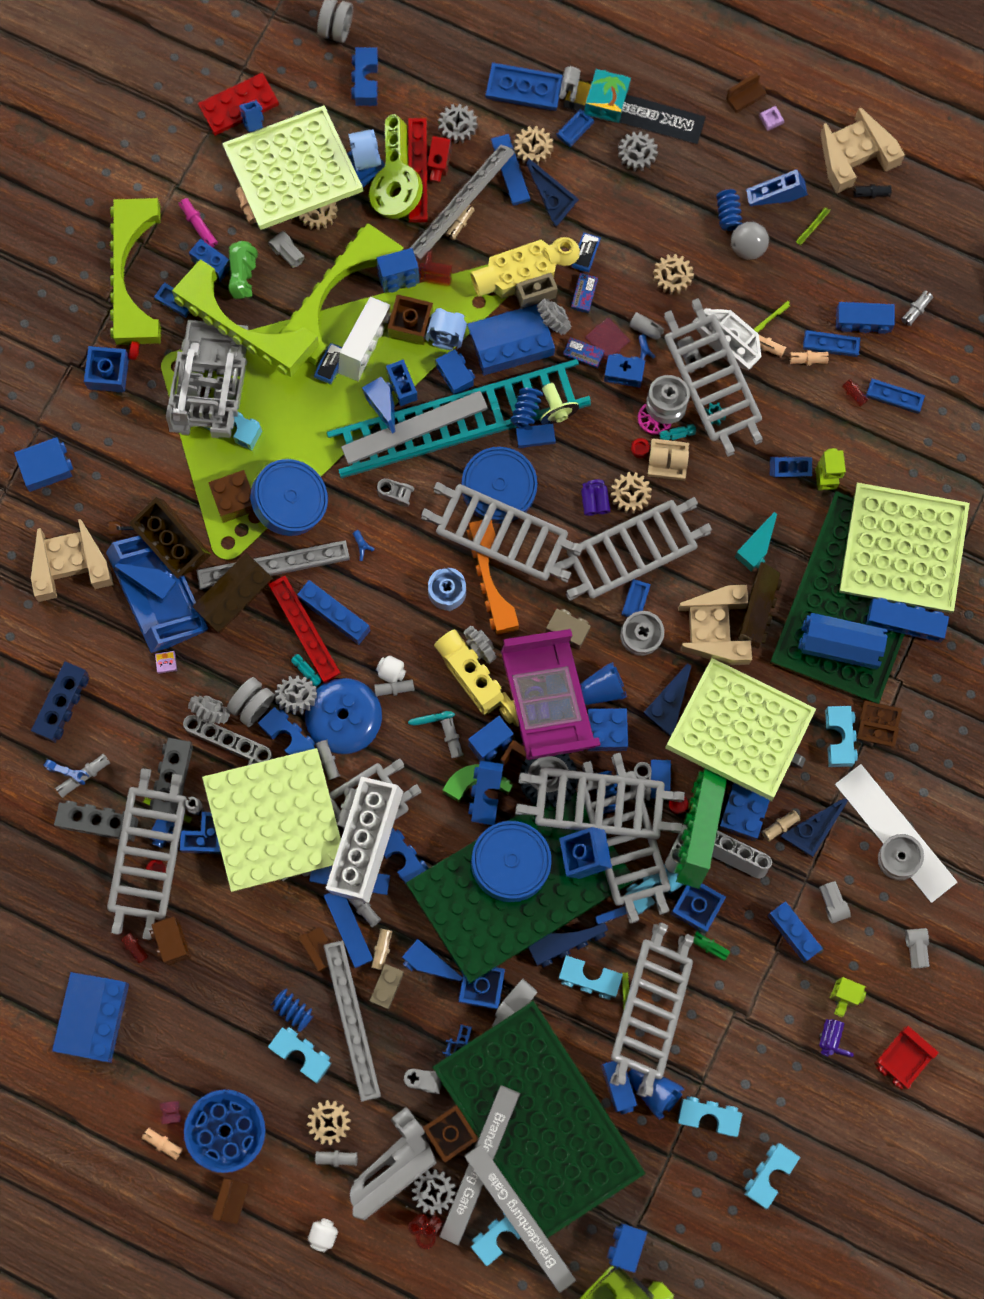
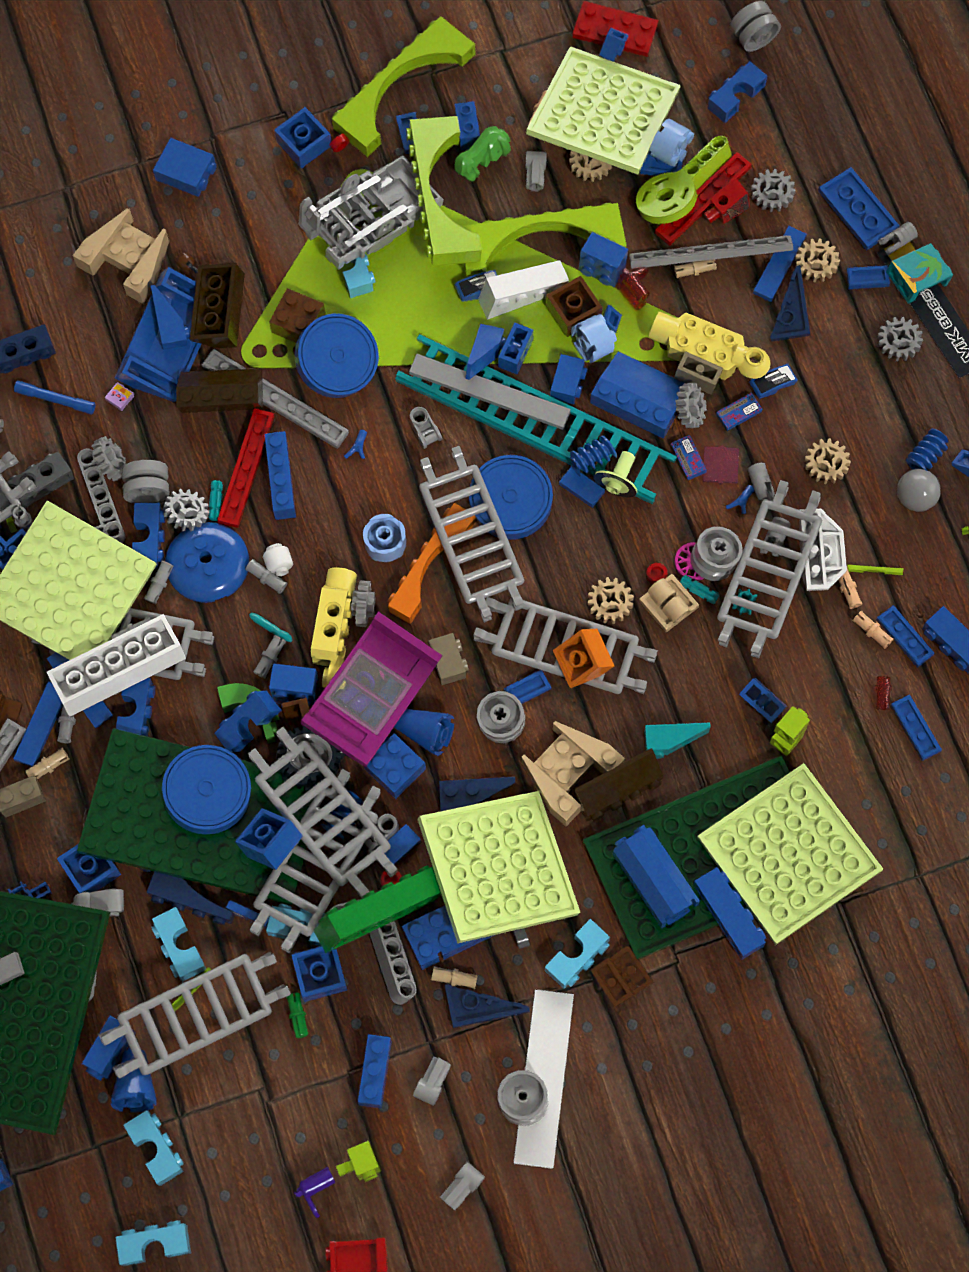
camera: 50 degrees right, 5 degrees down
(102, 714) = (75, 403): none -> blue piece
(194, 217) = (489, 84): dark pink pin -> none
(425, 961) = (69, 804): blue slope -> none
(440, 302) = (612, 318): none -> blue slope
(595, 498) = (577, 578): dark purple piece -> none
(615, 373) = (707, 511): blue brick -> none
(655, 545) = (583, 657): none -> orange slope

